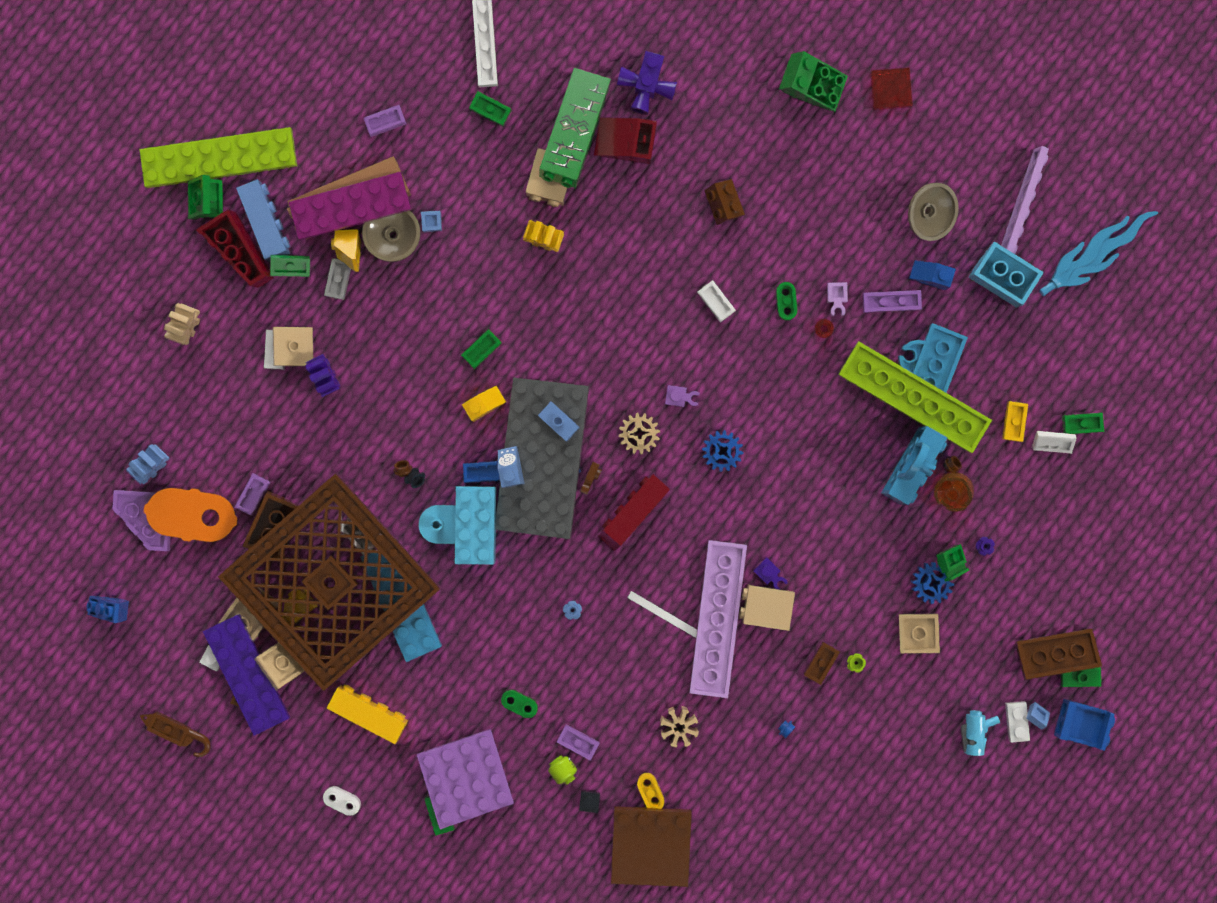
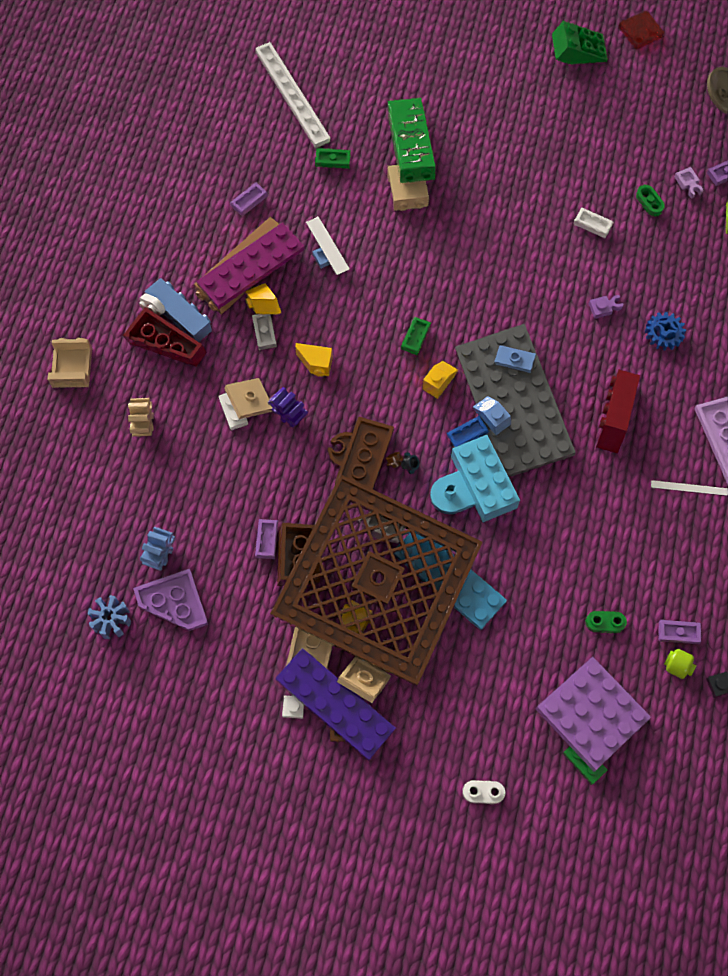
camera: 20 degrees left, 20 degrees down
(83, 516) = (102, 619): none -> medium blue gear
(107, 608) = (171, 700): blue slope -> none
(140, 232) = (71, 363): none -> tan panel
(174, 731) = (287, 795): reddish brown plate -> none
(180, 514) = (206, 583): orange piece -> none
(204, 197) = (116, 311): green bracket -> none
(218, 157) = (116, 281): lime plate -> none
(238, 210) = (152, 304): none -> white plate
(289, 265) = (217, 334): green plate -> none
(367, 714) = (469, 692): yellow brick -> none
(373, 333) = (315, 358): none -> yellow slope
(374, 450) = (362, 451): none -> reddish brown plate
(380, 244) = (301, 267): dark tan dish -> none
(438, 212) = (327, 245): none -> white sticker
(543, 235) = (425, 226): yellow gear -> none
(572, 605) = (609, 521): medium blue plate -> none
(594, 473) = (565, 394): reddish brown plate -> none
(626, 139) = (457, 135): dark red slope -> none
(640, 442) = (587, 346): tan gear -> none
(647, 82) = (451, 91): dark purple brick -> none
(724, 201) = (557, 151): reddish brown bracket -> none
(830, 328) = (692, 204): clear red plate -> none

